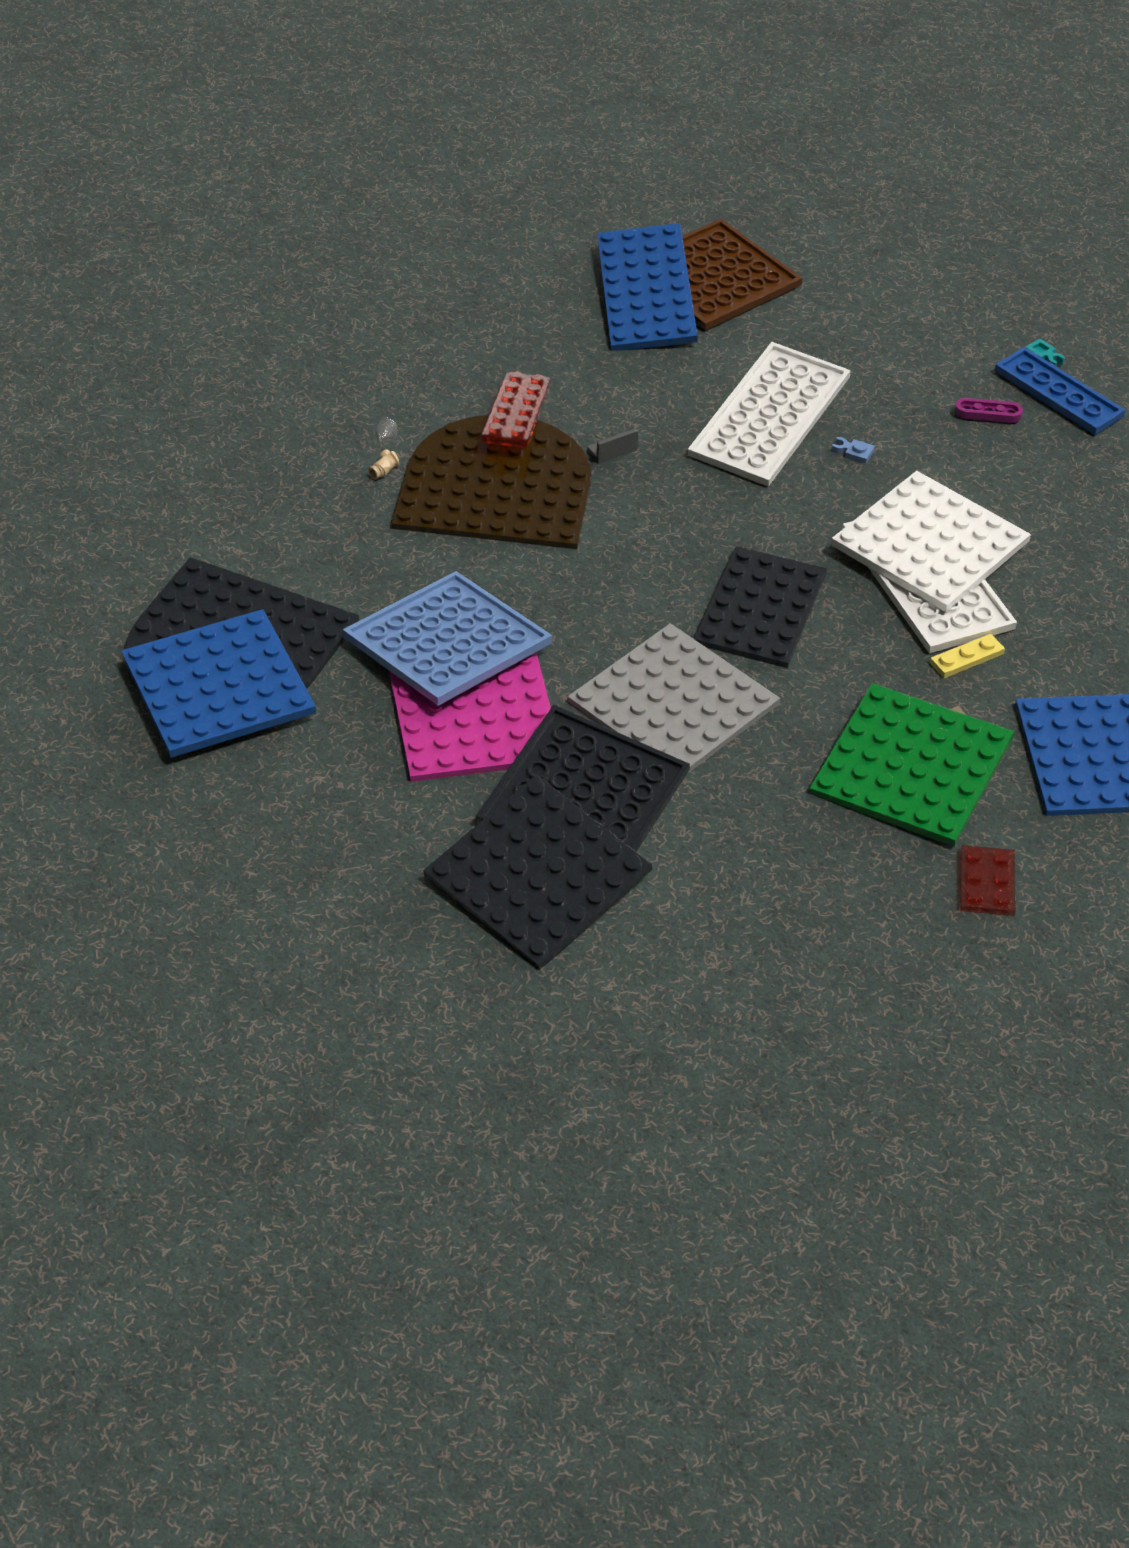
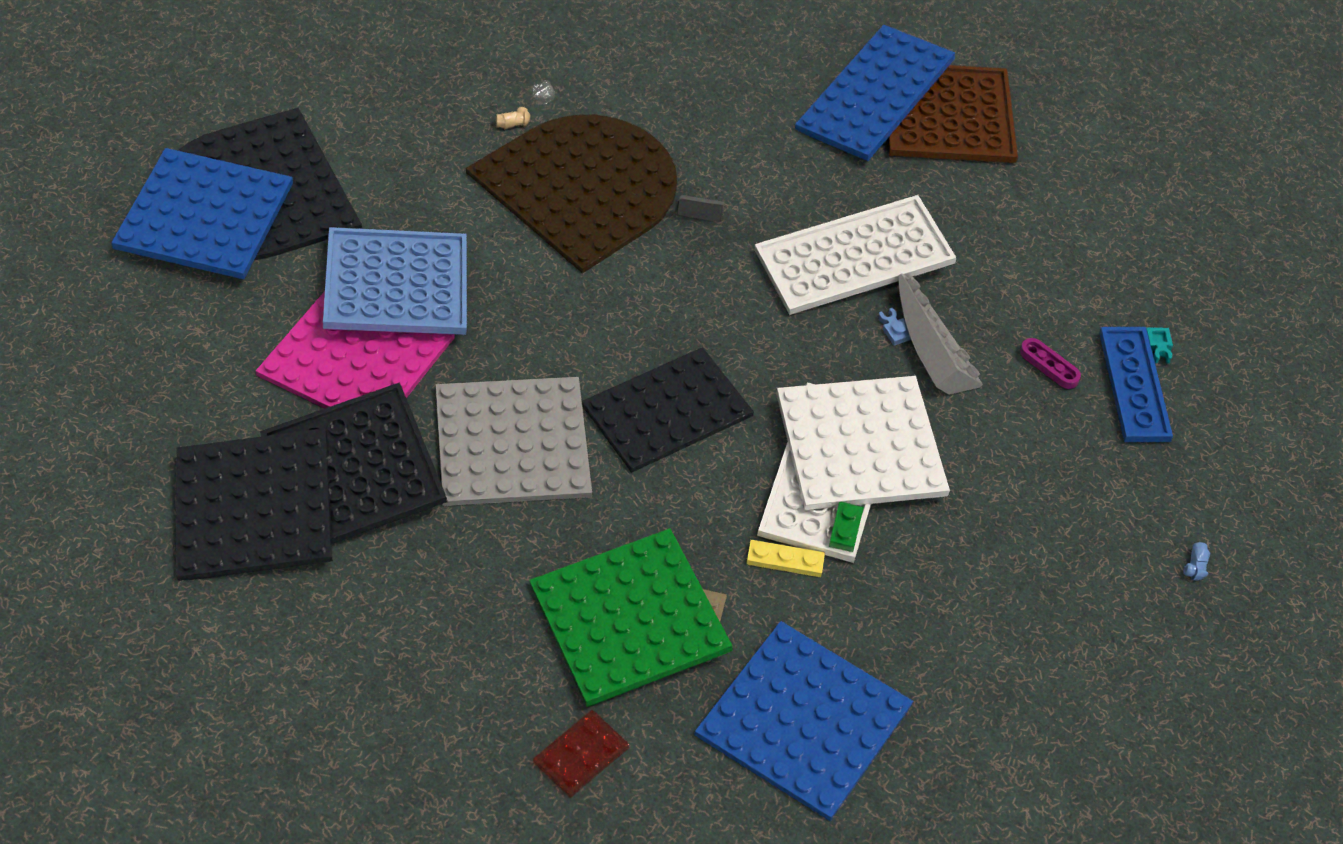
camera: 35 degrees right, 5 degrees up
(516, 409) = (655, 133): clear red plate -> none
(897, 441) = (933, 342): none -> light grey wedge
(989, 604) = (846, 526): none -> green plate

